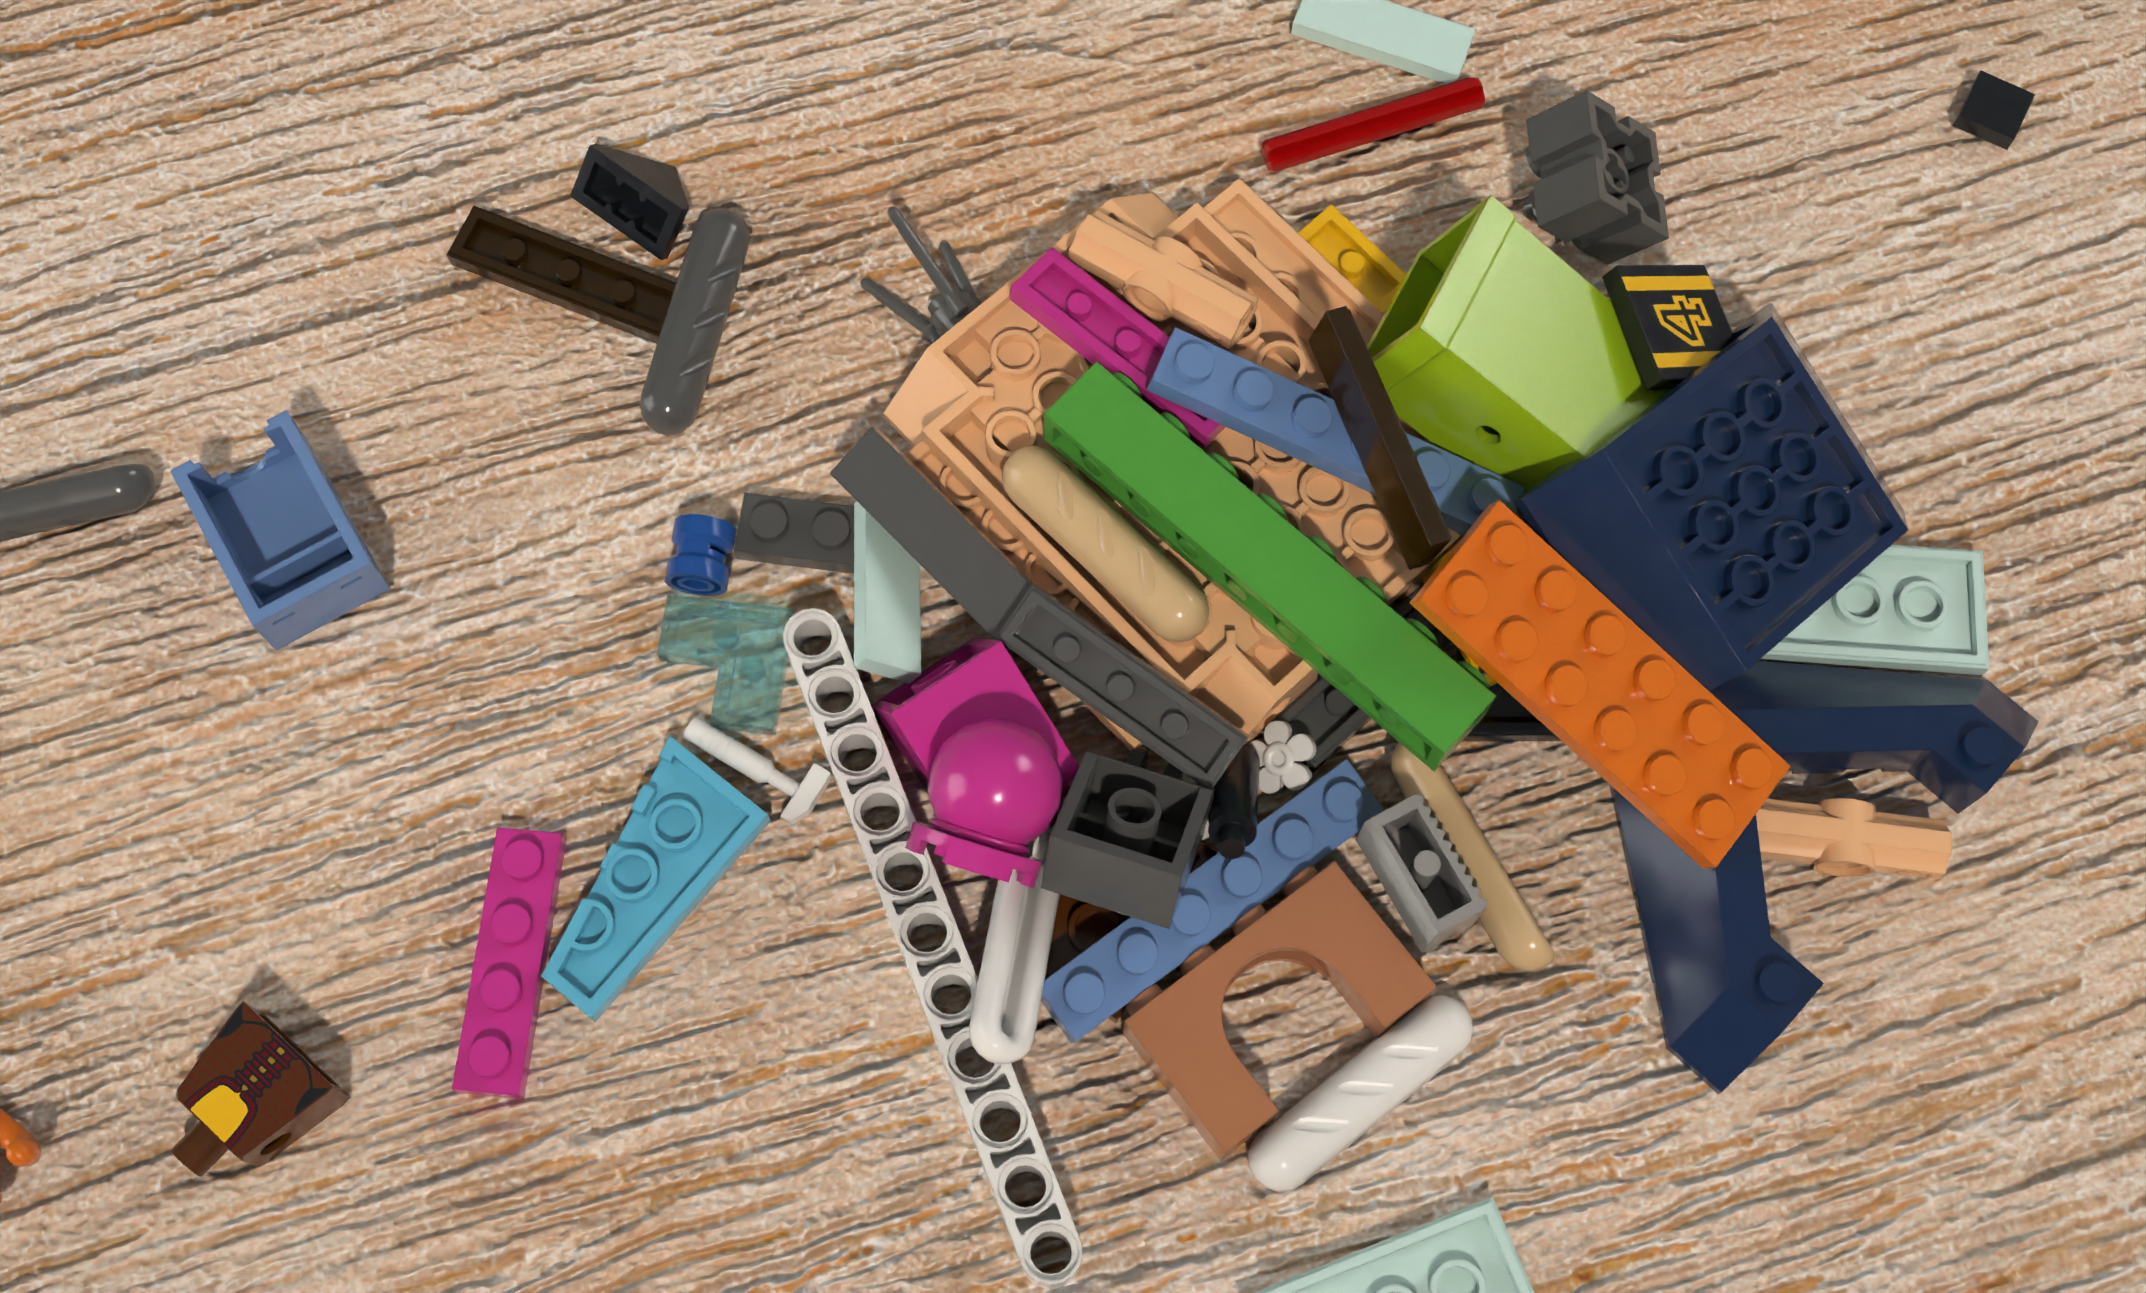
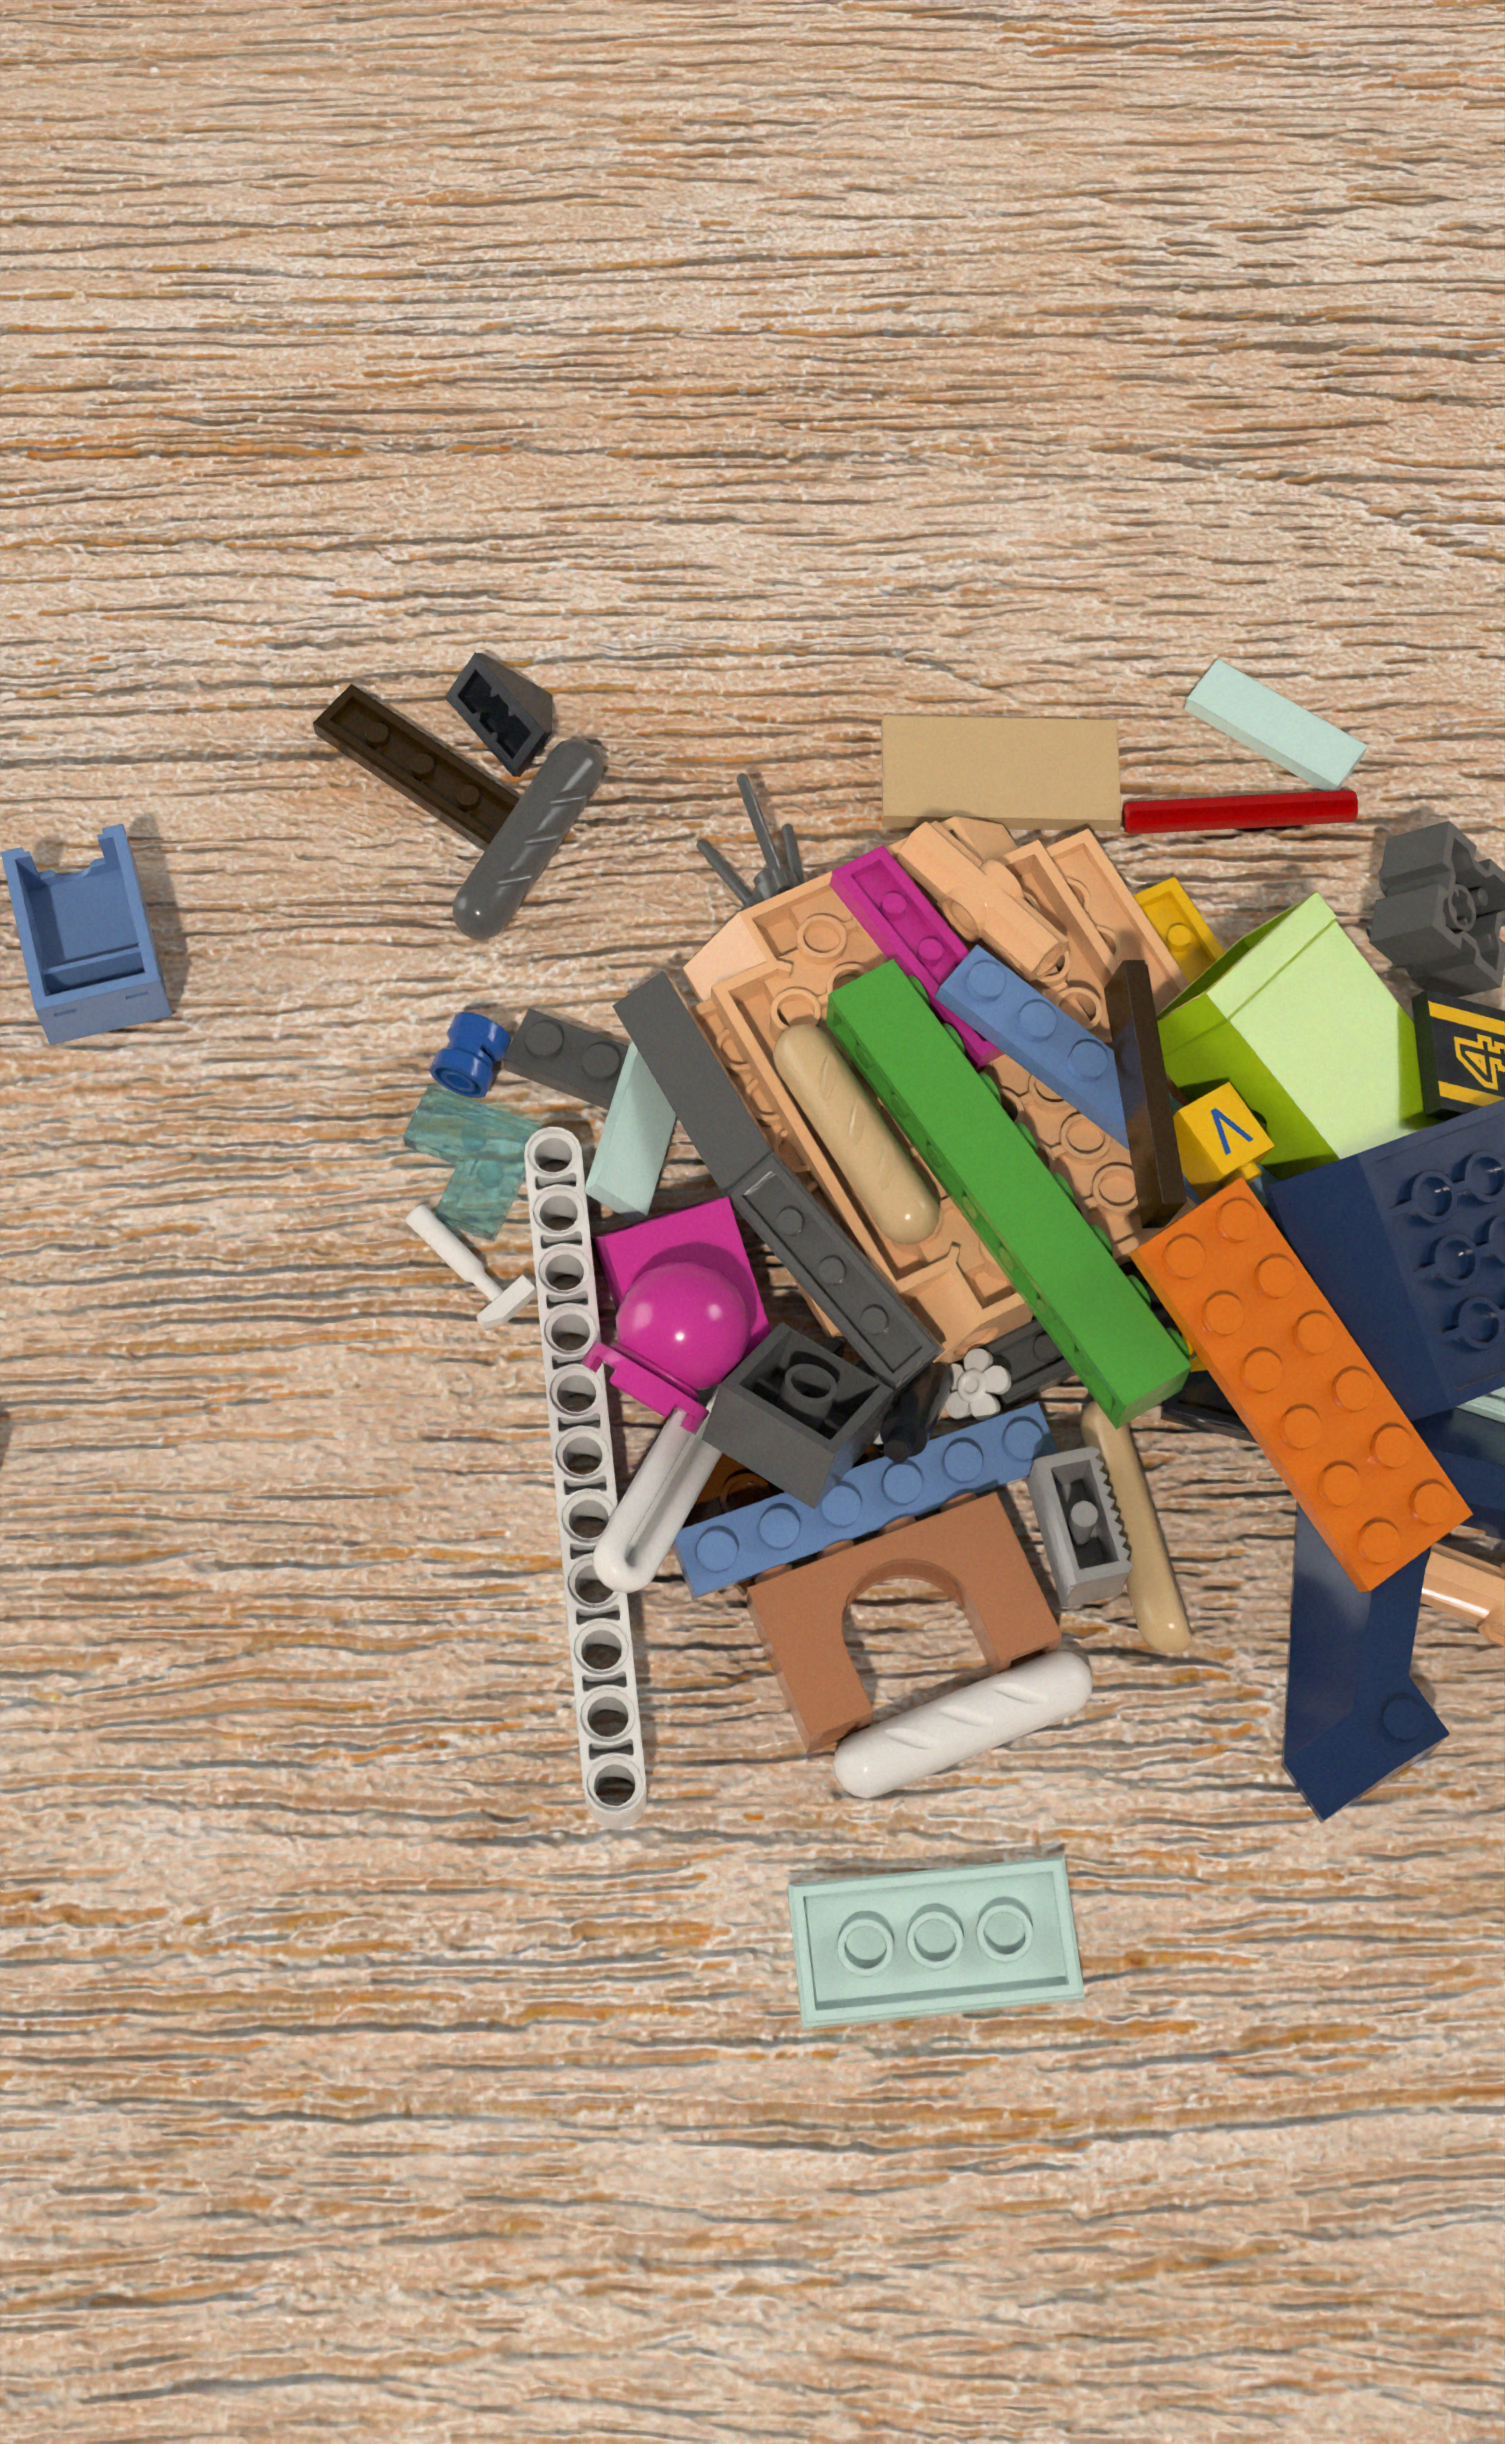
camera: 15 degrees right, 5 degrees down
(509, 964) = (182, 1386): dark pink plate -> none
(667, 859) = (355, 1330): medium azure wing -> none
(1134, 140) = (1001, 772): none -> tan tile
(1464, 466) = (1219, 1141): none -> yellow brick

